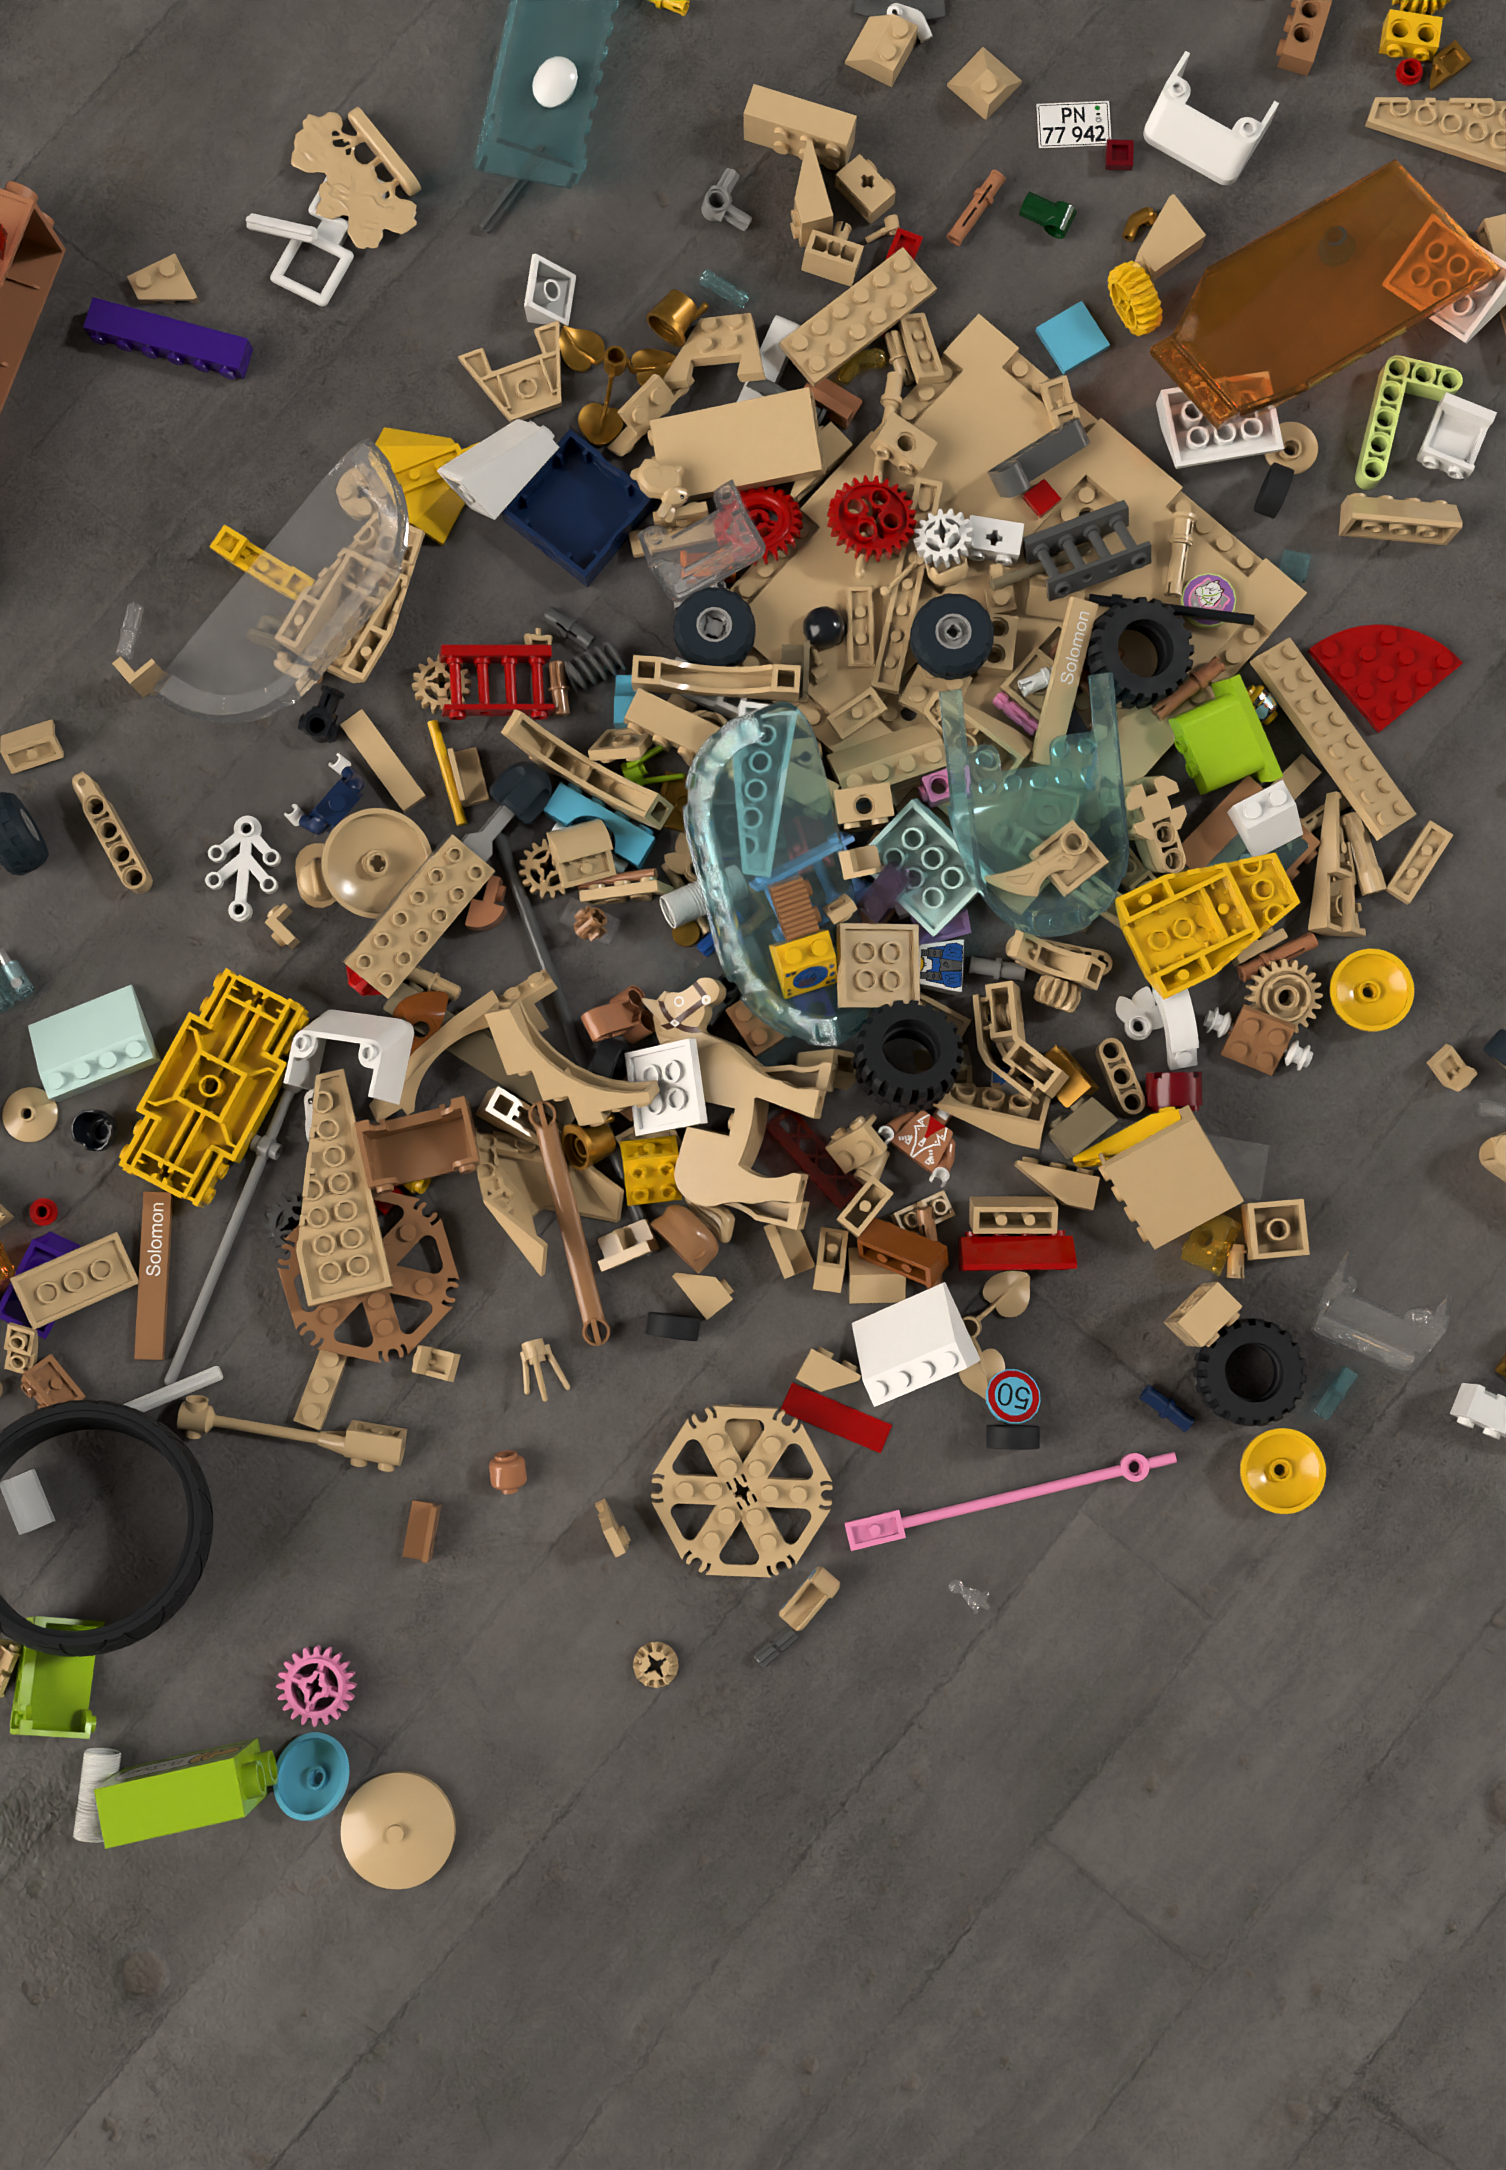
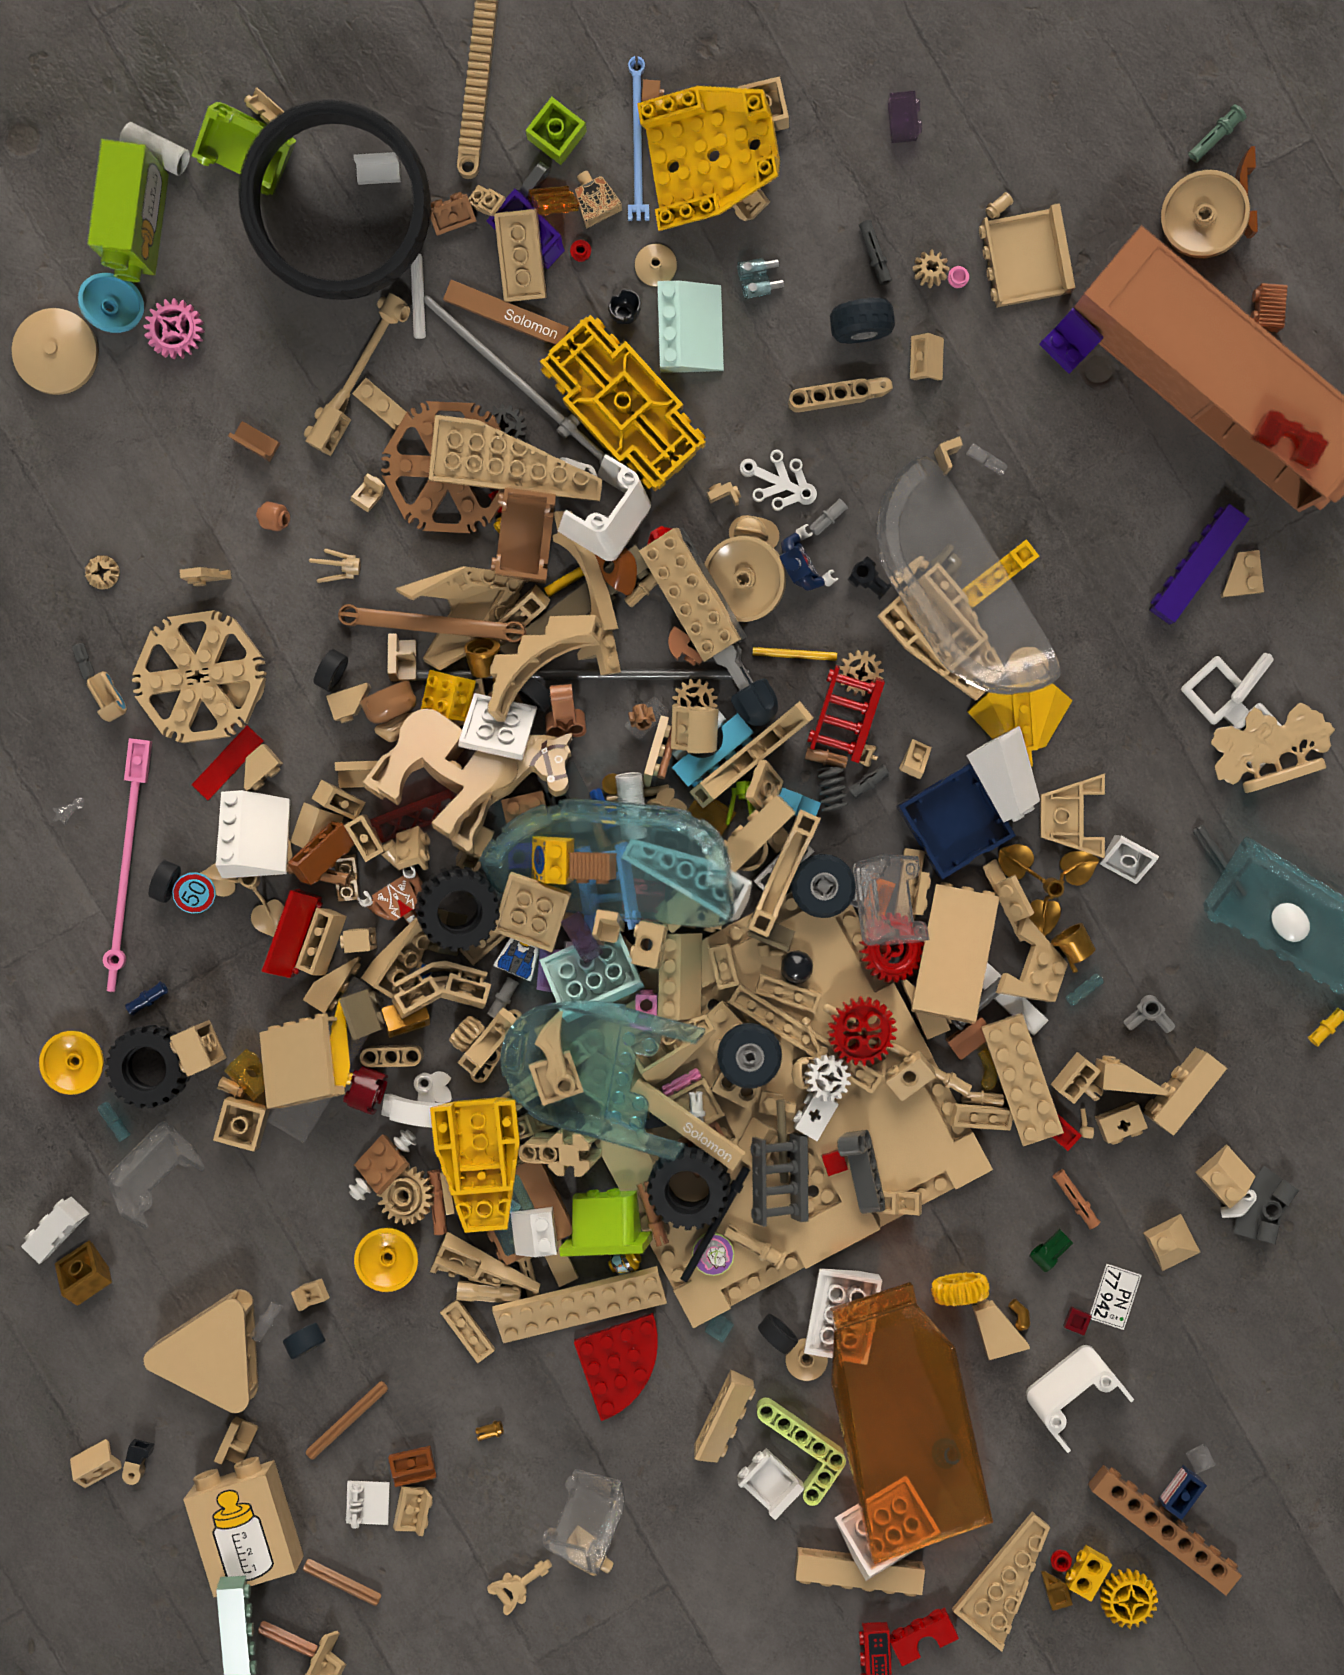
camera: 110 degrees right, 5 degrees up
(266, 792) = (828, 517): none -> light grey axle
(383, 760) = (820, 610): tan tile -> none
(459, 1082) = (564, 581): none -> yellow piece
(468, 776) = (785, 668): tan panel -> none
(522, 582) = (915, 759): none -> tan slope
(662, 483) = (946, 888): tan animal -> none
(840, 909) = (580, 899): tan plate -> none
(993, 1167) = (358, 940): none -> tan brick
(1072, 337) = (951, 1232): medium azure tile -> none

